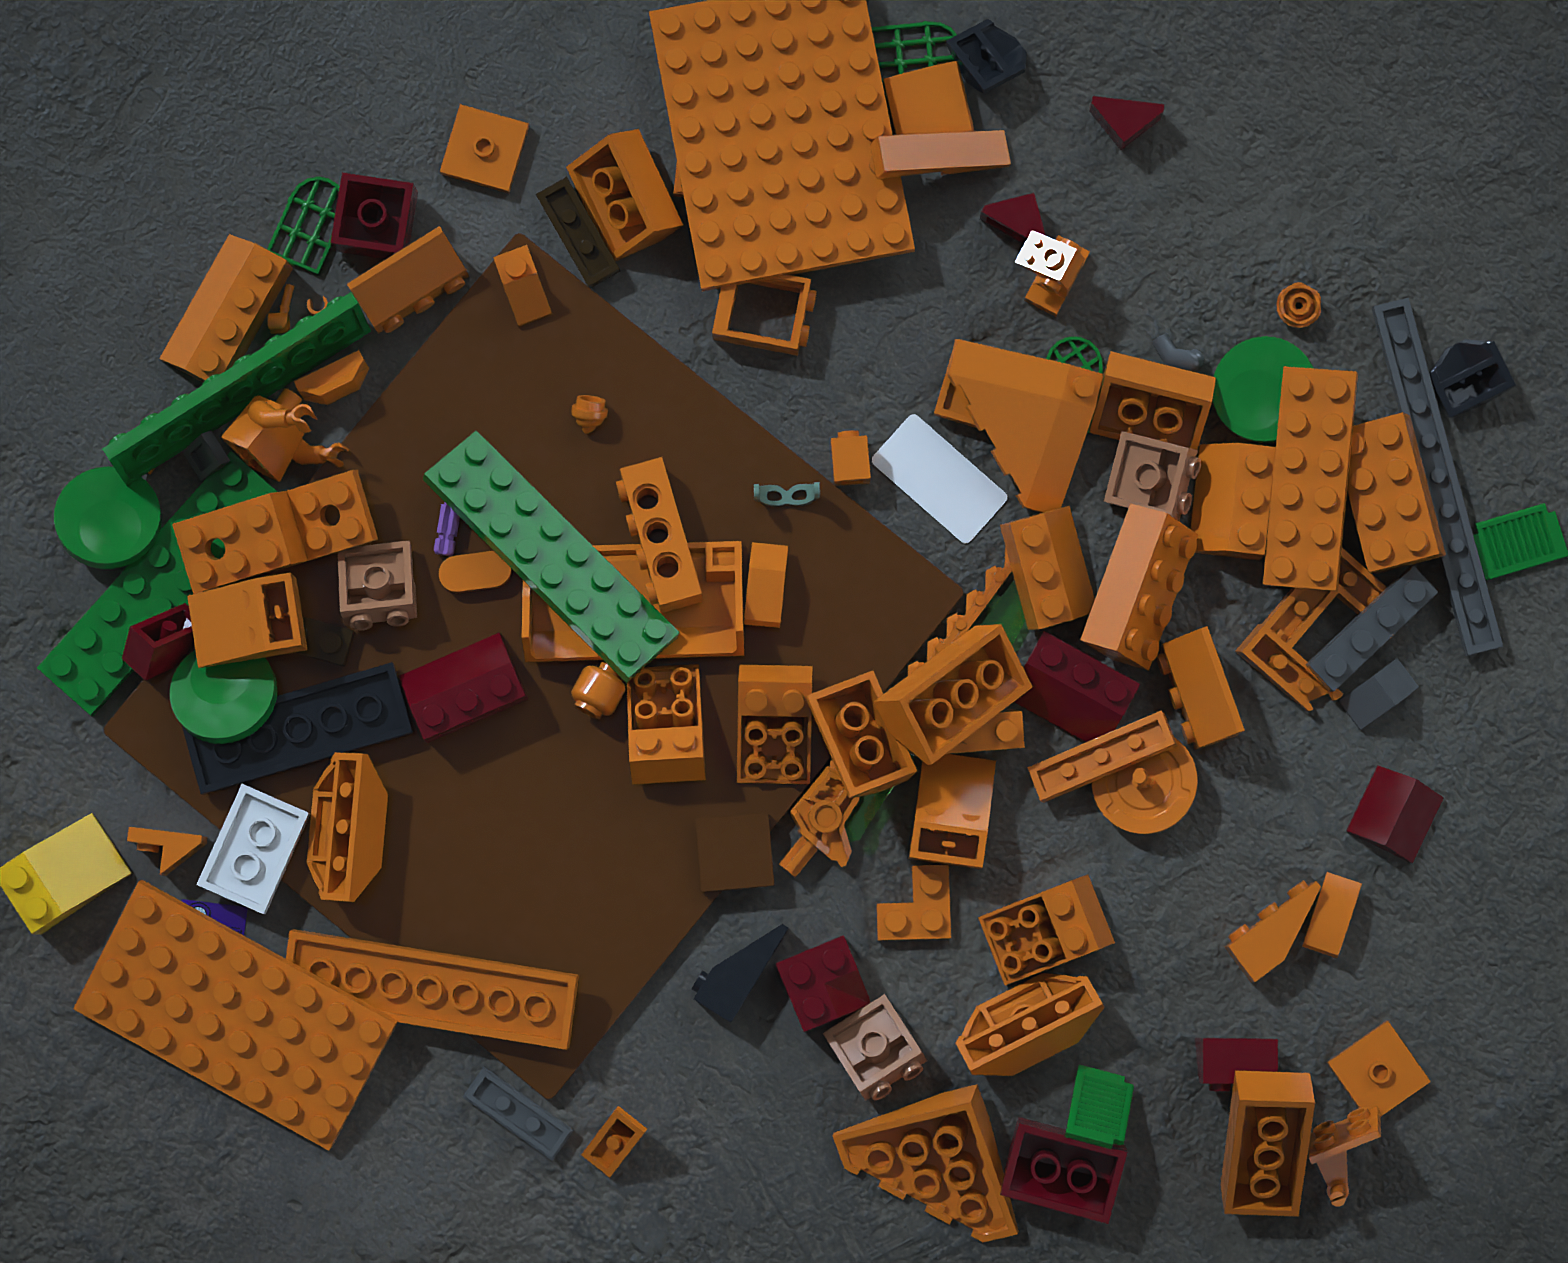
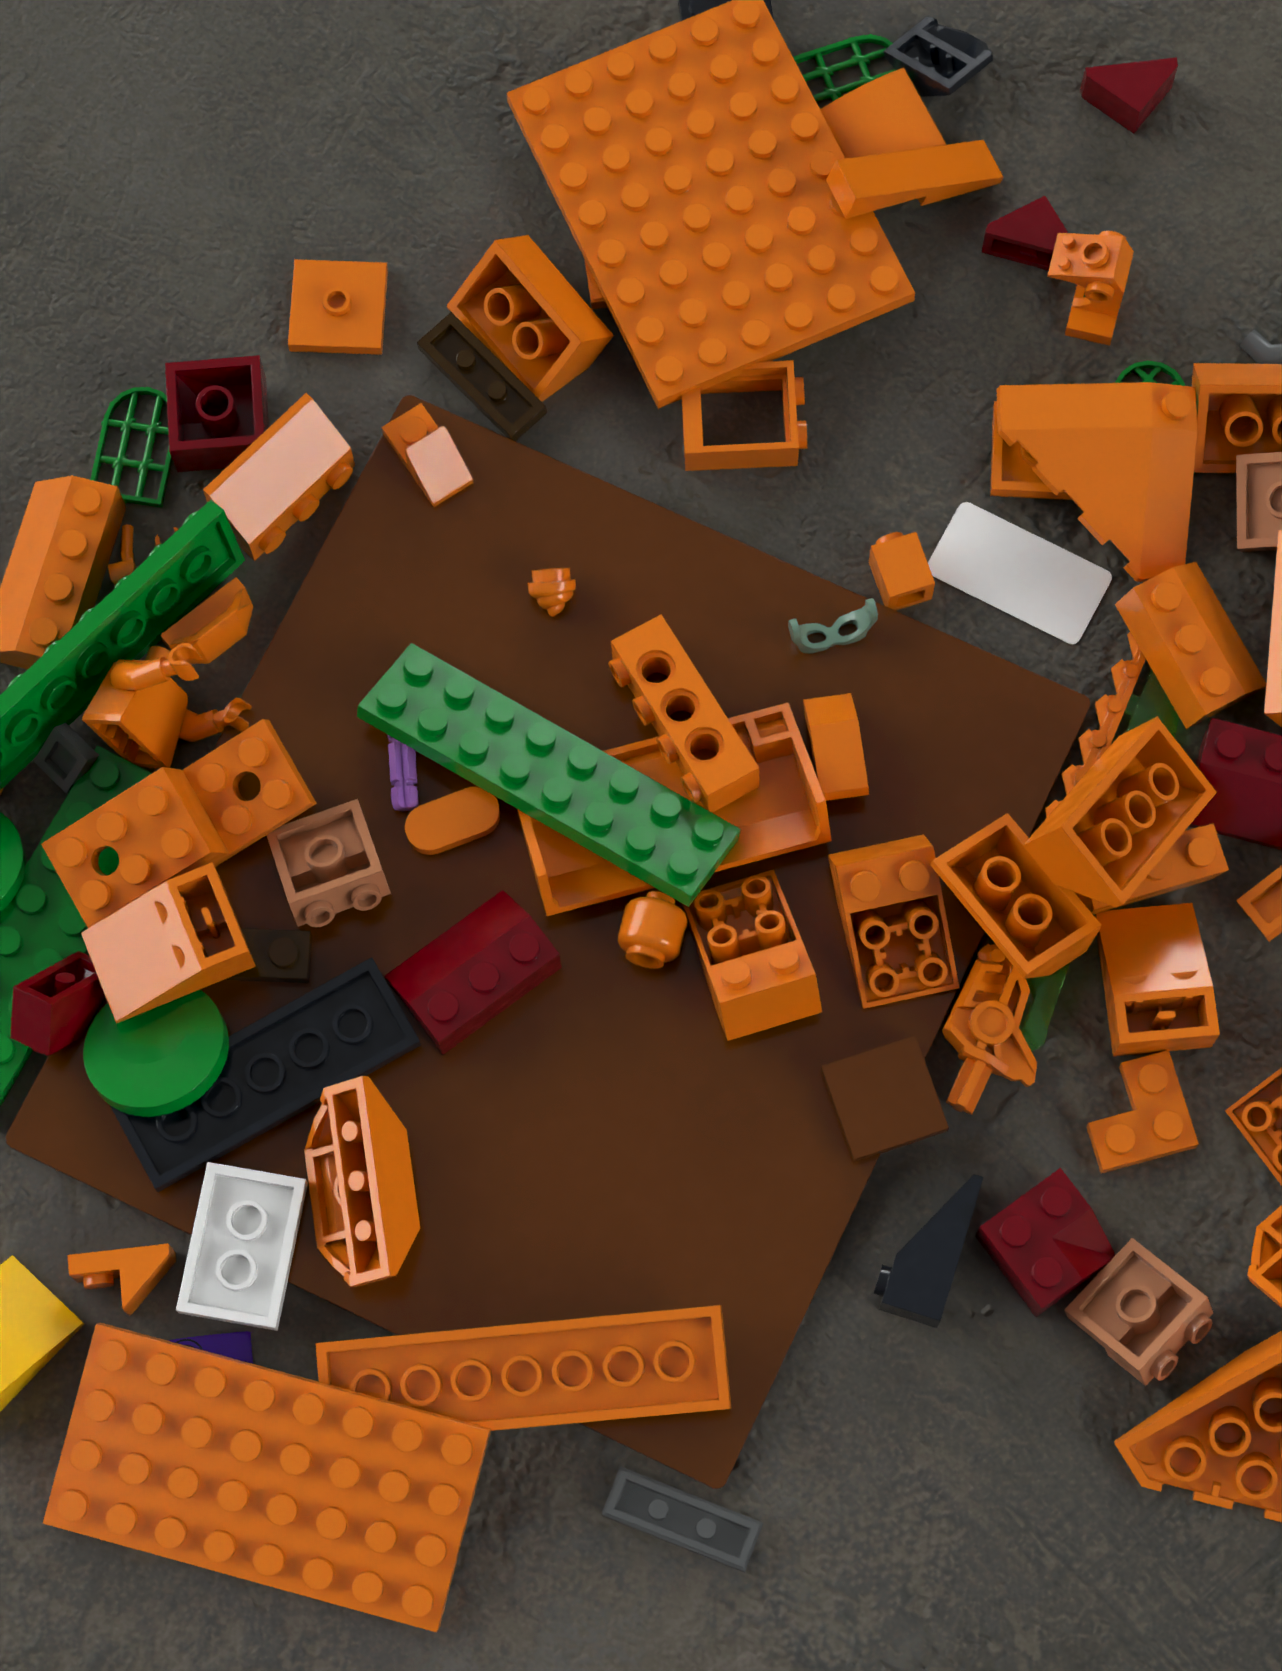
camera: 15 degrees left, 10 degrees down
(614, 1141) = (824, 1521): orange slope -> none

